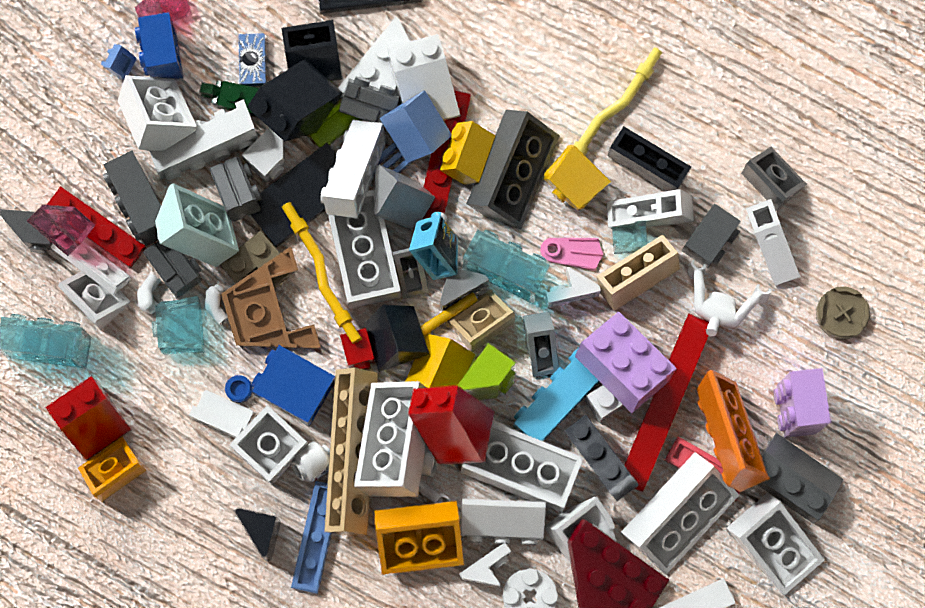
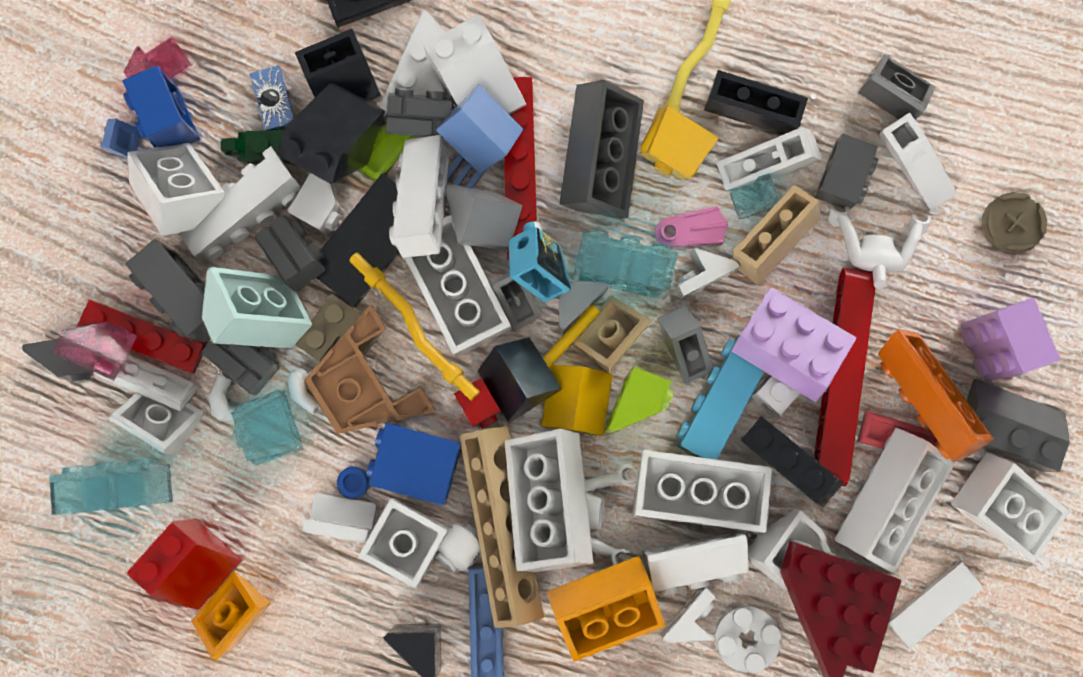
camera: 10 degrees left, 5 degrees up
(452, 423) = (612, 469): red slope -> none
(467, 152) = (546, 144): yellow brick -> none

